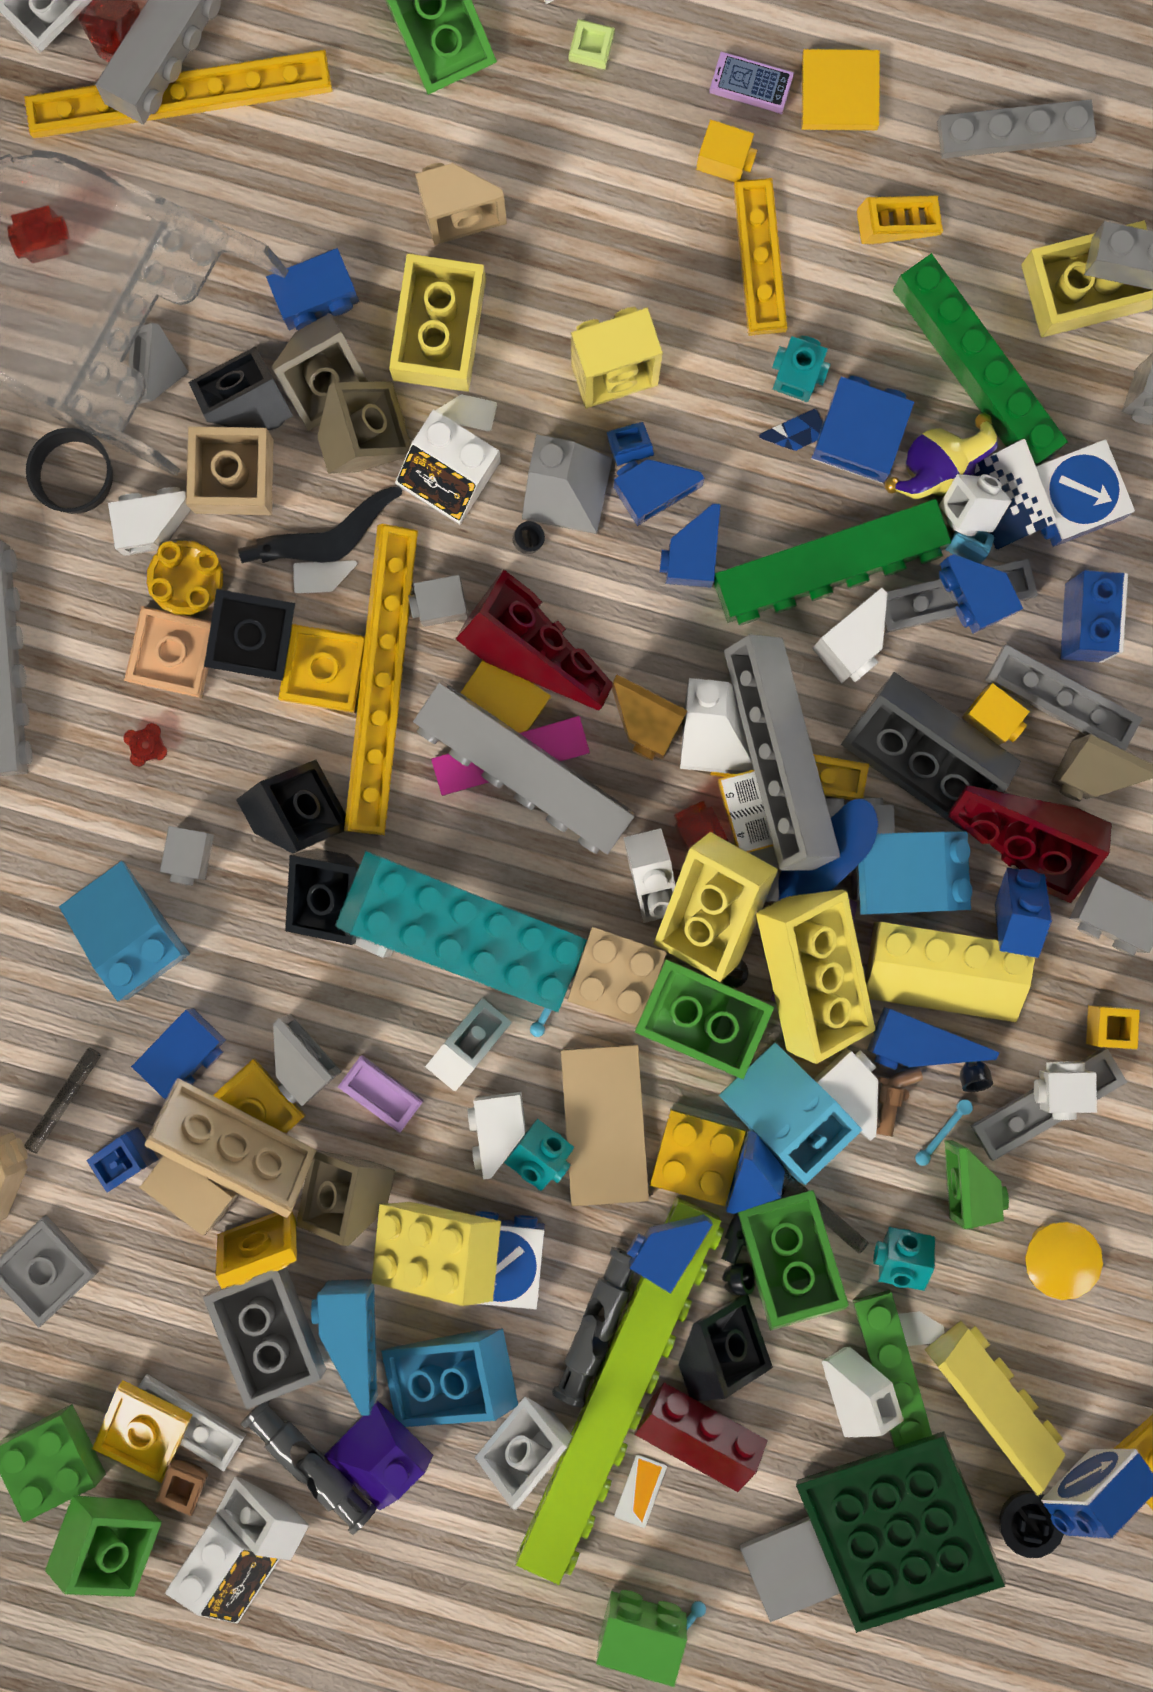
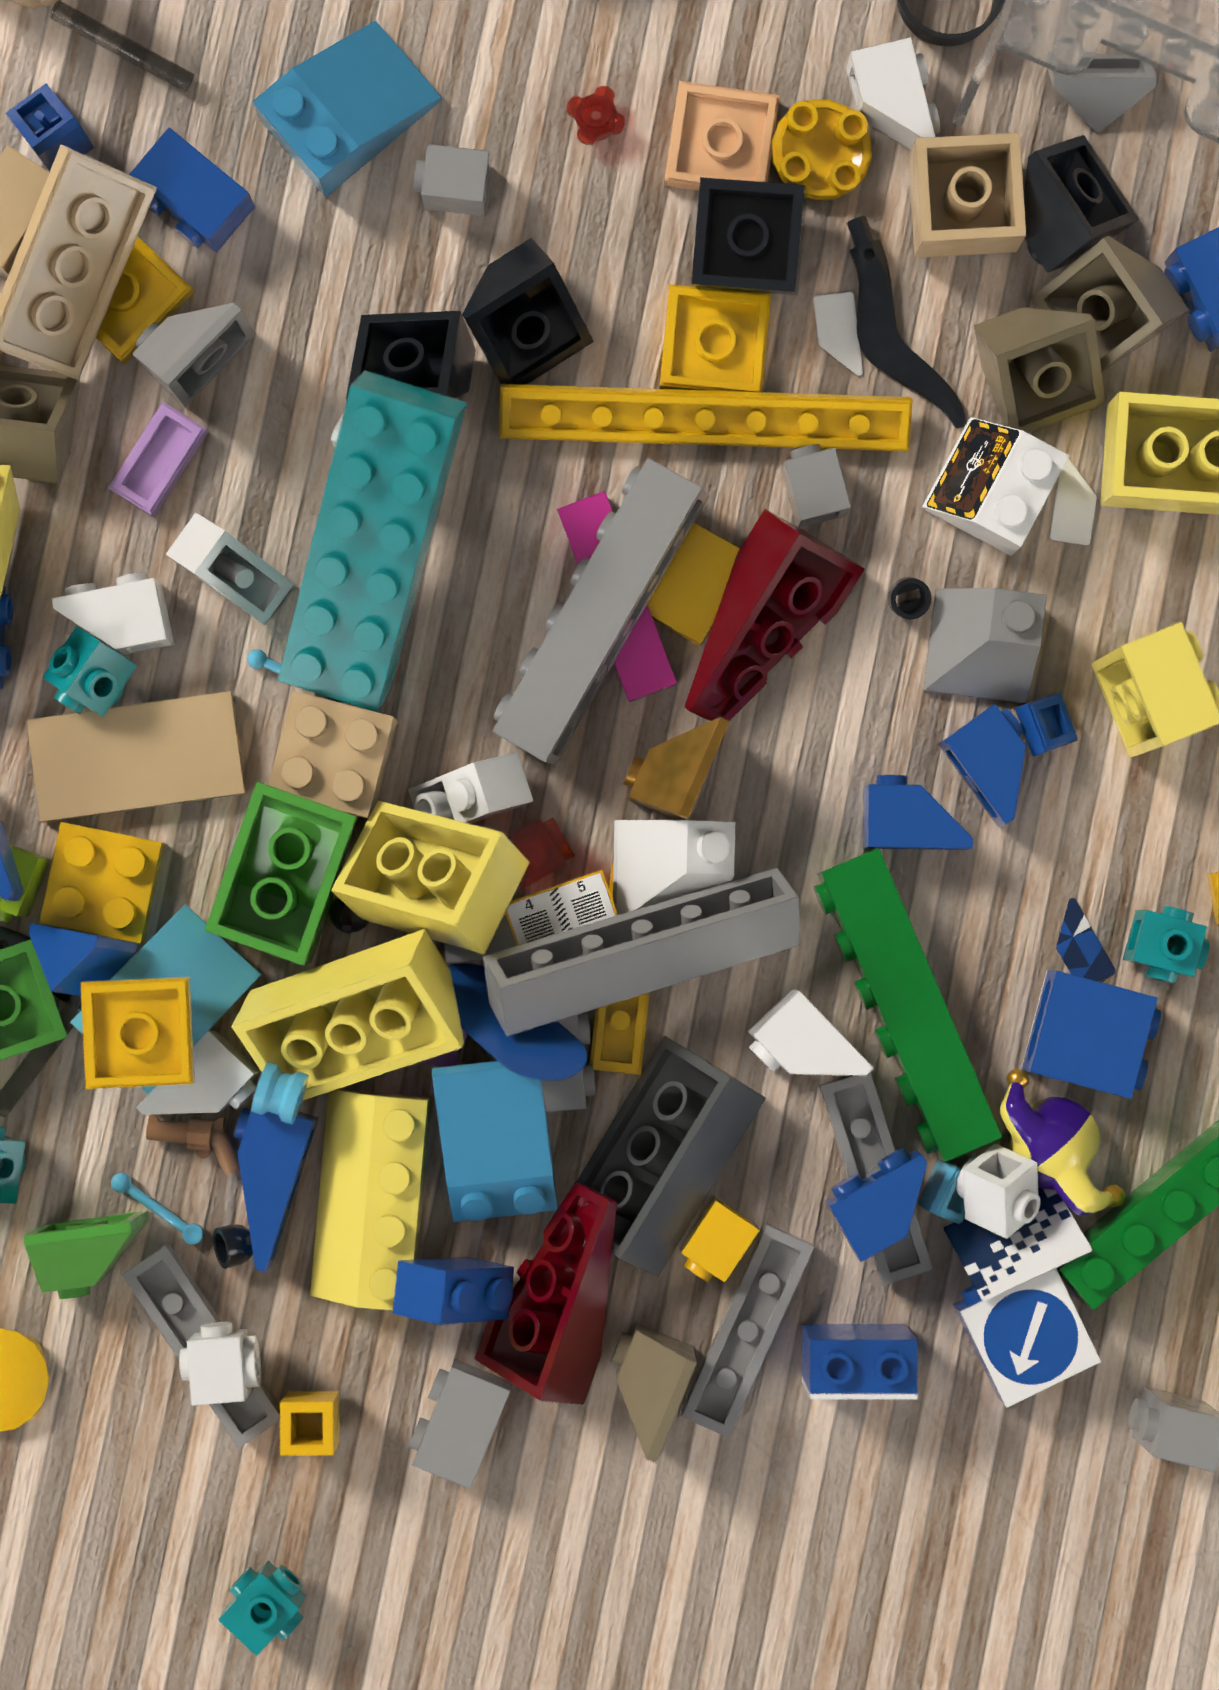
camera: 80 degrees right, 0 degrees up
(817, 1134) = (137, 1032): none -> yellow tile
(868, 1031) = (279, 1093): none -> medium azure wheel

